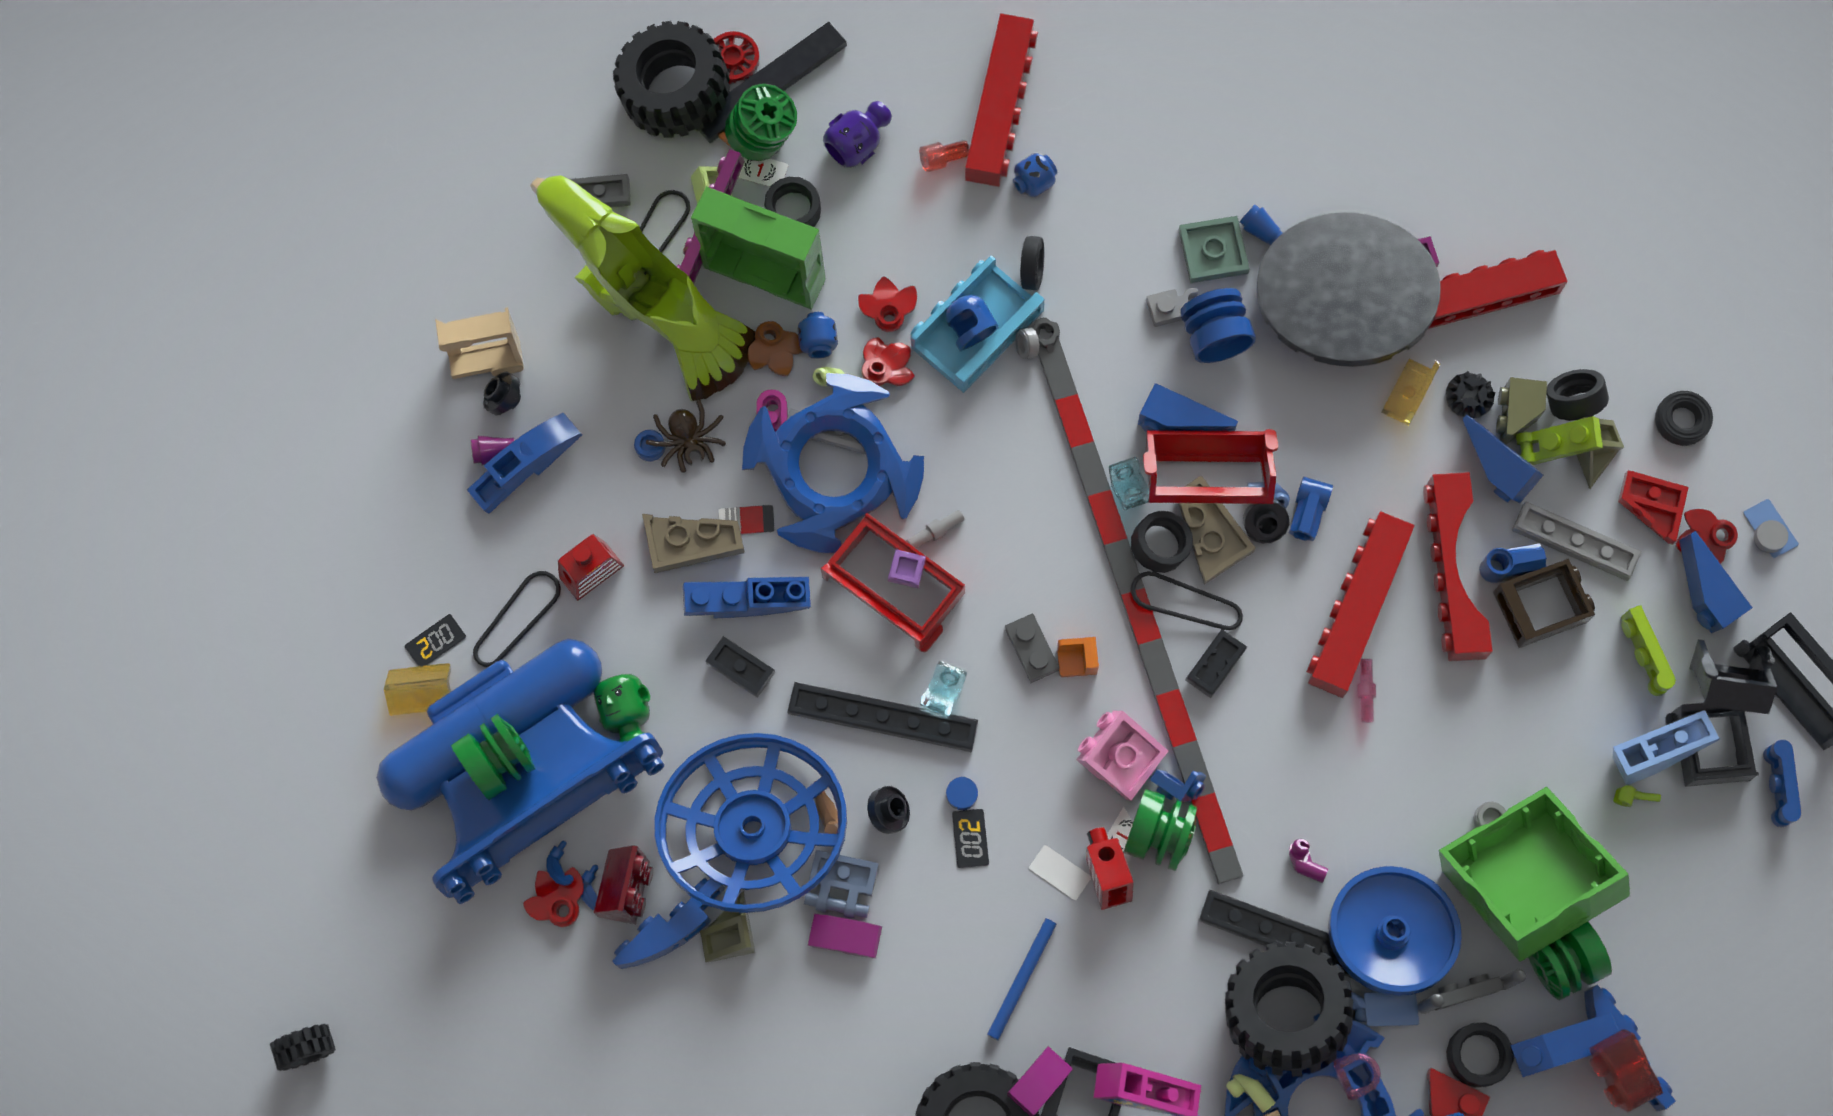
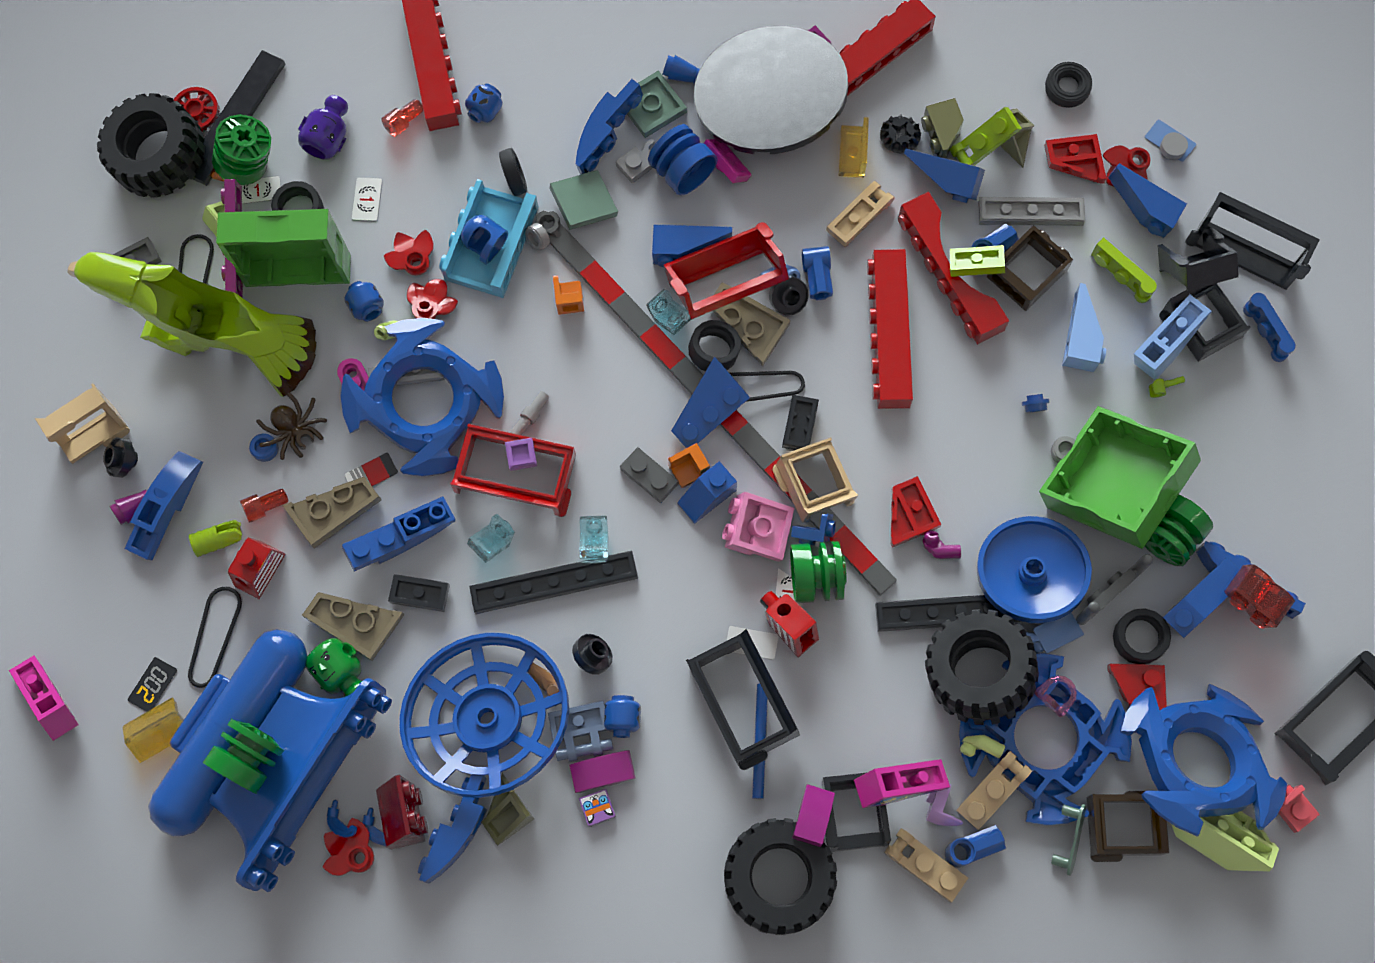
camera: 25 degrees left, 0 degrees up
(324, 607) = (43, 698): none -> dark pink slope
(561, 518) = (215, 537): none -> lime hinge
(615, 504) = (255, 507): none -> clear red piece
(661, 668) = (353, 622): none -> dark tan wing
(774, 353) = (335, 329): dark orange plate -> none
(823, 970) = (597, 807): none -> tile
(839, 643) = (492, 538): none -> clear light blue bracket
(868, 226) = (366, 199): none -> white sticker
(890, 888) = (622, 716): none -> blue head
(962, 793) = (645, 614): blue tile -> none
(970, 838) = (667, 647): black sticker -> none
(1013, 989) = (757, 752): none -> black piece
(1031, 420) = (568, 296): none -> orange panel
(1084, 694) = (708, 492): none -> blue slope
(1094, 323) = (583, 199): none -> sand green tile
(1127, 602) = (709, 405): none -> blue wing
(1142, 257) = (599, 130): none -> blue slope
(1175, 720) = (789, 481): none -> tan piece
(1267, 347) = (728, 162): none -> dark pink plate
(1291, 811) = (911, 512): none -> red wing
(1366, 690) = (926, 394): clear pink bar -> none
(1384, 464) = (859, 214): none -> tan plate
(1481, 753) = (1035, 403): none -> blue plate
(1486, 571) = (977, 261): none -> plate
(1570, 703) = (1084, 335): none -> light blue slope
(1575, 382) = (993, 94): black tyre -> none

